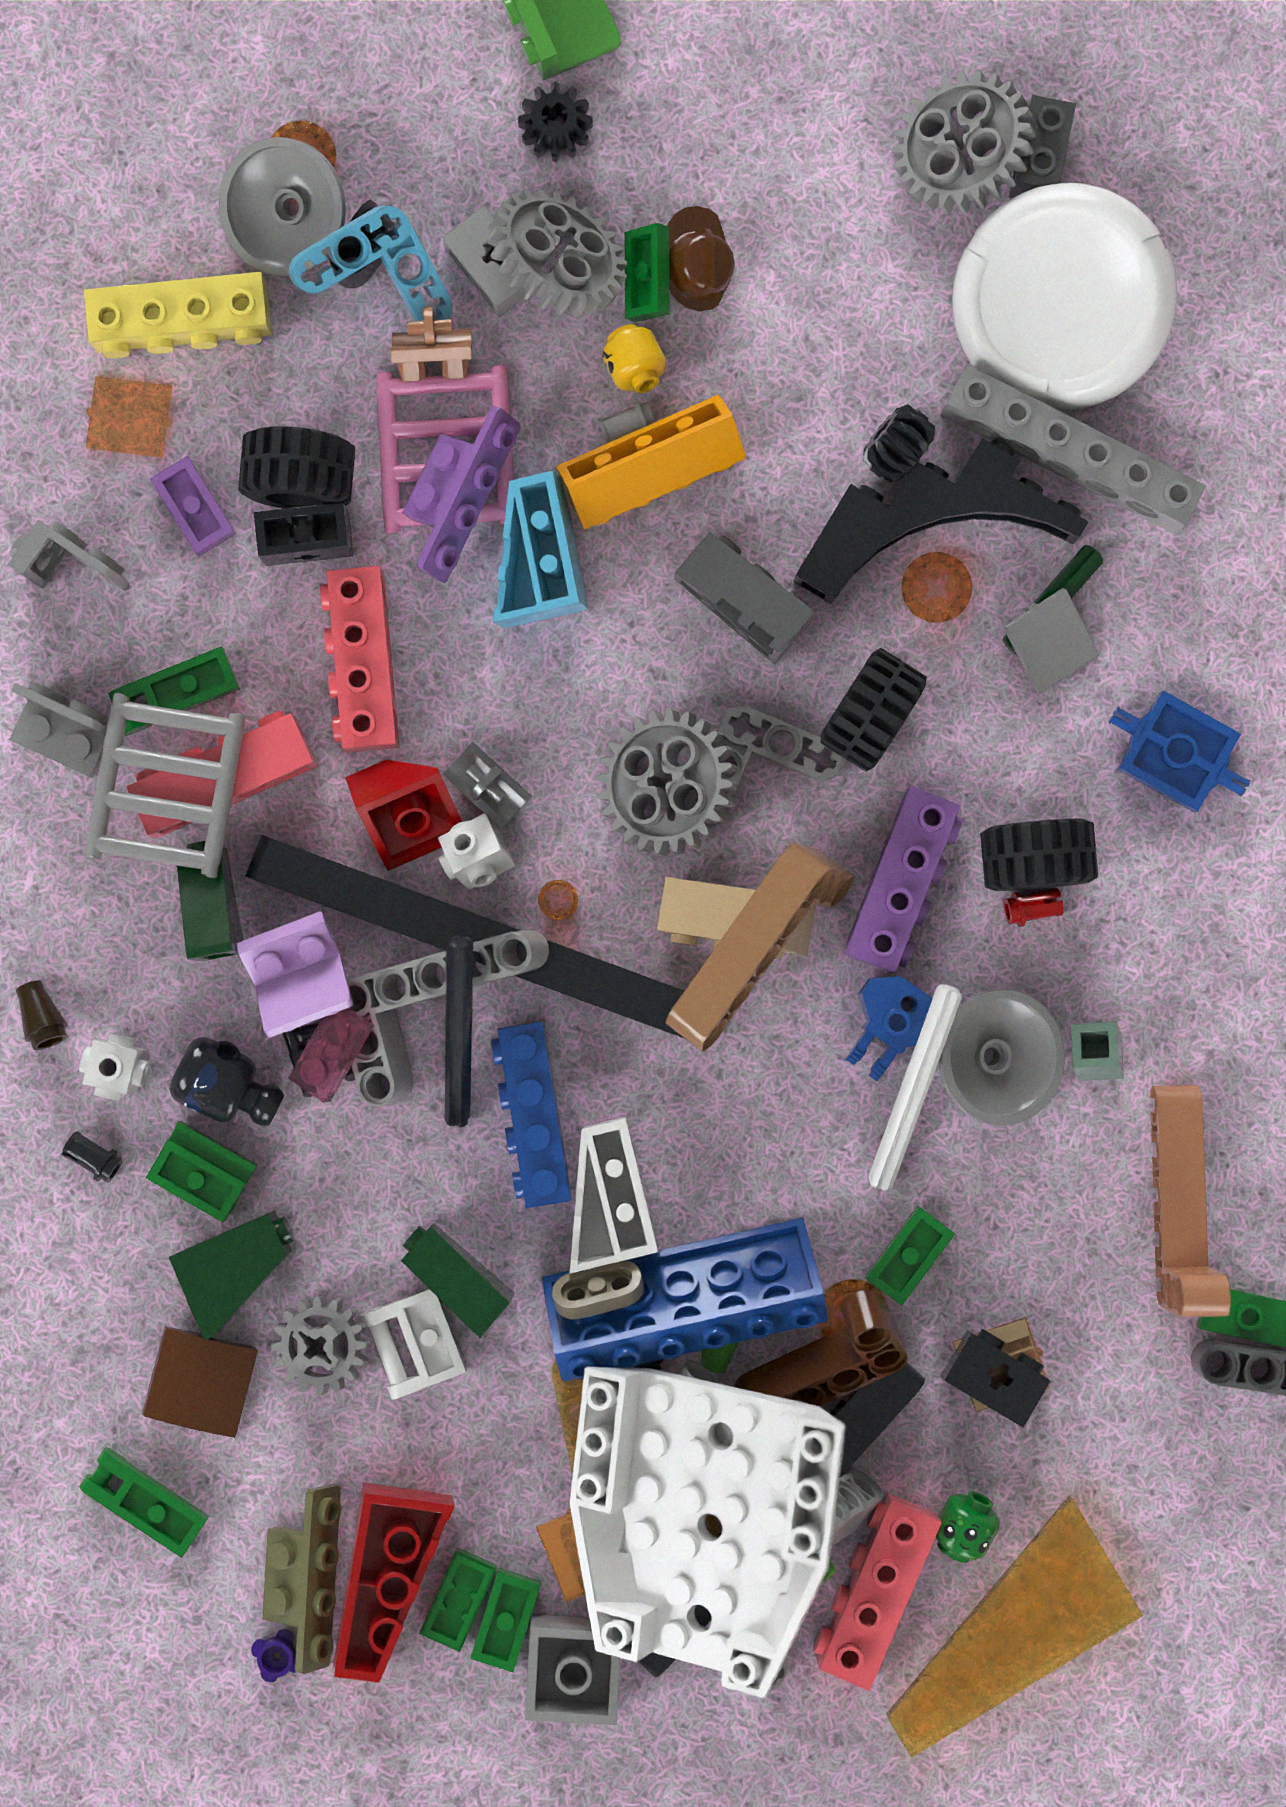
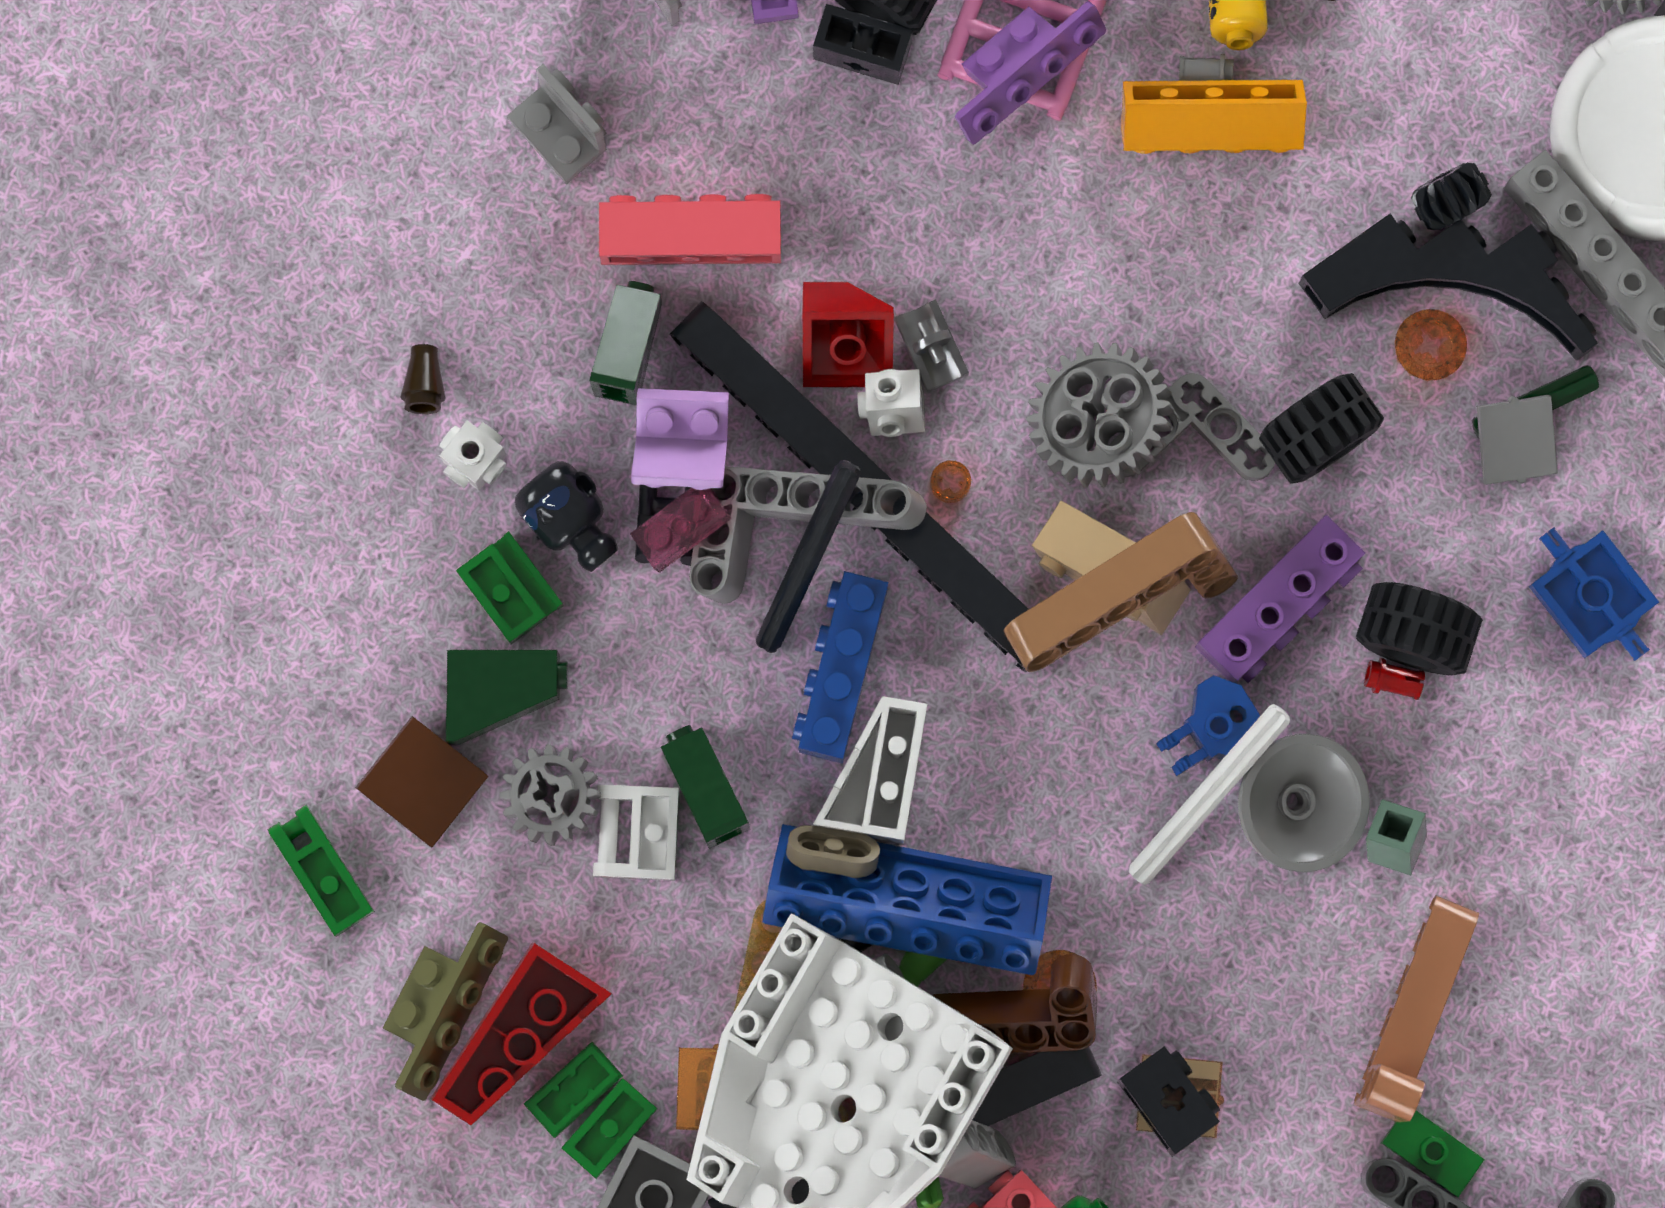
camera: 25 degrees right, 5 degrees down
(92, 1157) = (413, 531): black pin -> none
(115, 754) = (669, 264): light grey bar -> none
(183, 685) = (679, 136): green plate -> none
(268, 1665) = (371, 1059): dark purple plate -> none
(361, 658) = (864, 182): coral brick -> none
(540, 554) = (1072, 158): medium azure wedge -> none
(744, 596) = (1246, 276): dark grey wedge -> none
(909, 1255) = (1137, 953): green plate -> none

